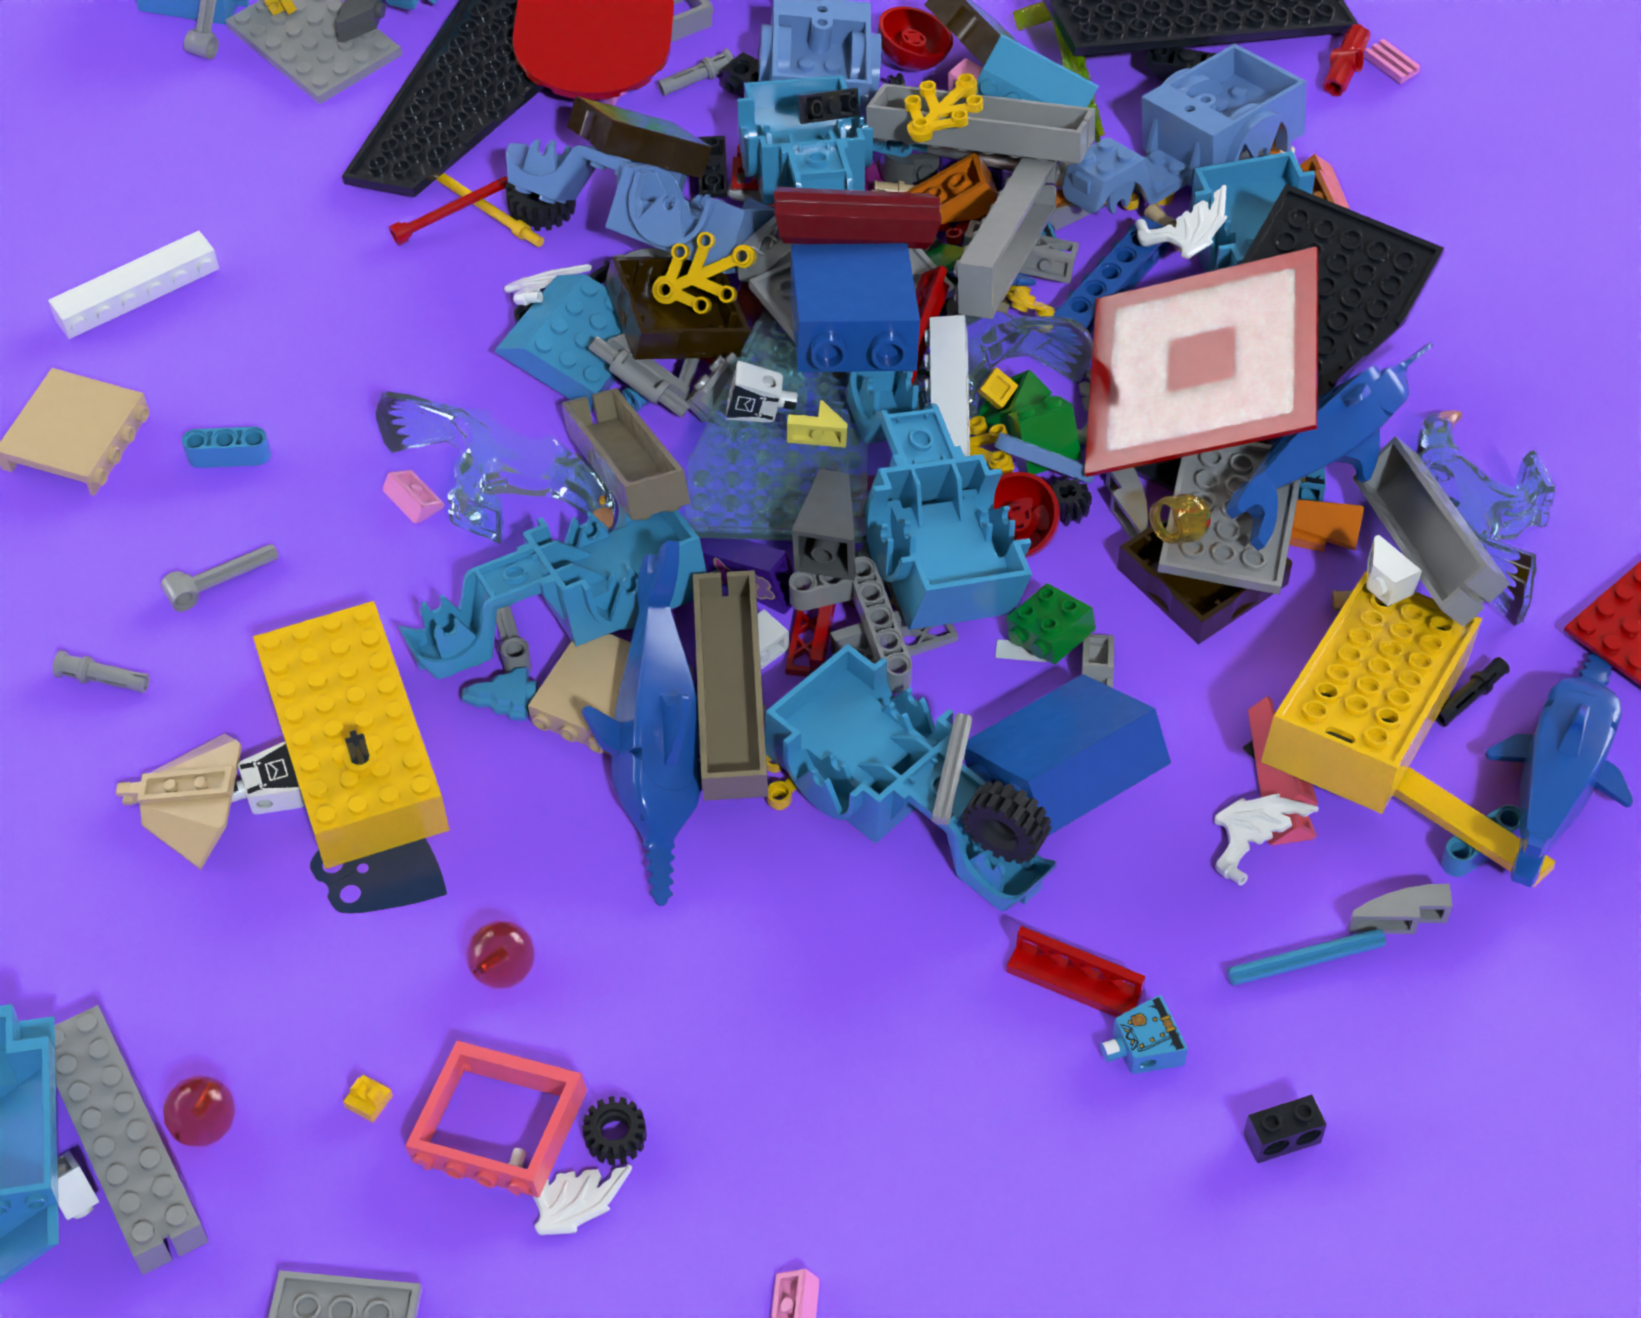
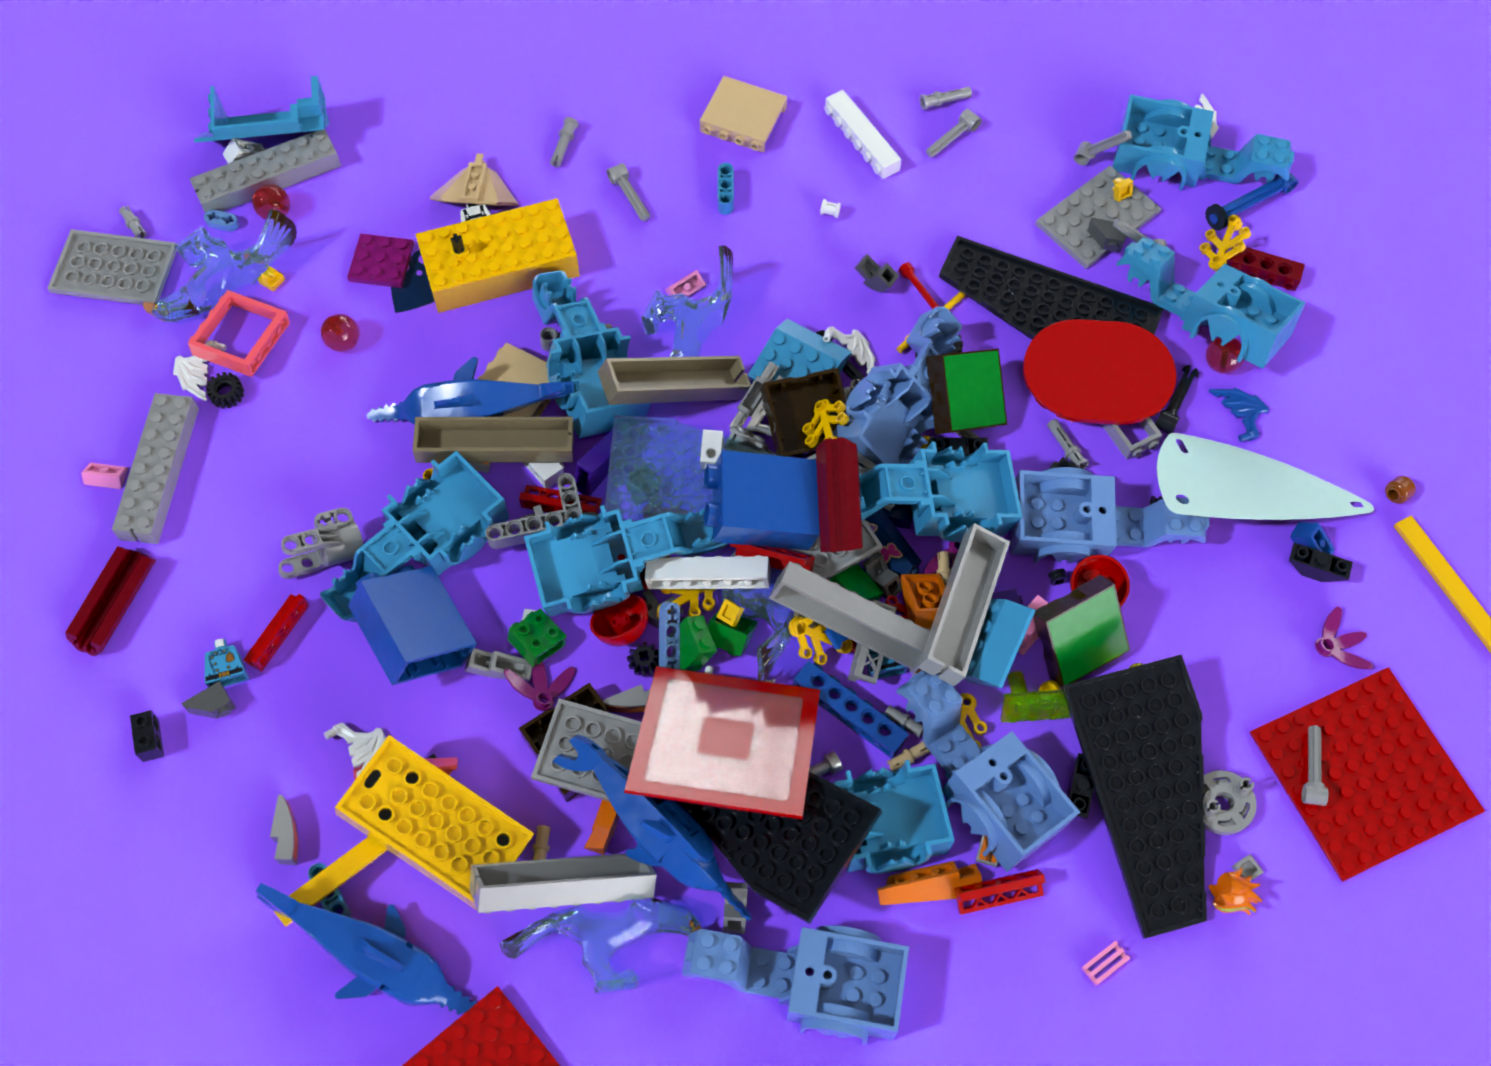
camera: 90 degrees right, 10 degrees up
(73, 197) = (937, 98): none -> light grey pin
(126, 166) = (967, 121): none -> light grey axle
(231, 1209) = (221, 221): none -> medium blue beam
(277, 320) = (830, 208): none -> white bush
(336, 925) = (380, 260): none -> magenta plate
(361, 1164) = (222, 268): none -> clear light blue animal
(414, 259) = (876, 277): none -> dark grey brick
(504, 694) = (524, 334): dark azure rock -> none
(782, 1210) = (155, 469): none -> light grey piece
(824, 430) = (688, 493): light yellow slope -> none
(825, 528) = (591, 487): dark grey slope -> none
(827, 105) = (977, 495): black slope -> none
(922, 128) = (965, 569): yellow plant -> none
(926, 907) = (332, 544): none -> light grey piece
(951, 769) = (397, 550): light grey axle -> none
(1006, 822) = (343, 572): black tyre -> none
(1047, 1232) = (108, 600): none -> dark red piece
(1118, 229) = (904, 720): none -> light grey pin
(1132, 617) = (540, 692): none -> magenta plant
(1189, 515) = (583, 713): clear yellow helmet -> none
(1193, 229) = (880, 761): white animal -> none
(1211, 1046) = (211, 702): none -> dark grey slope
(1306, 956) = (266, 768): dark azure axle -> none
(1329, 142) = (998, 886): none -> red fence
(1346, 60) = (1097, 920): red piece -> none
(1390, 573) = (520, 841): white slope -> none
(1420, 381) = (733, 921): none -> light grey brick
(1480, 684) = (456, 914): black pin -> none
(1484, 296) = (849, 995): none -> medium blue piece

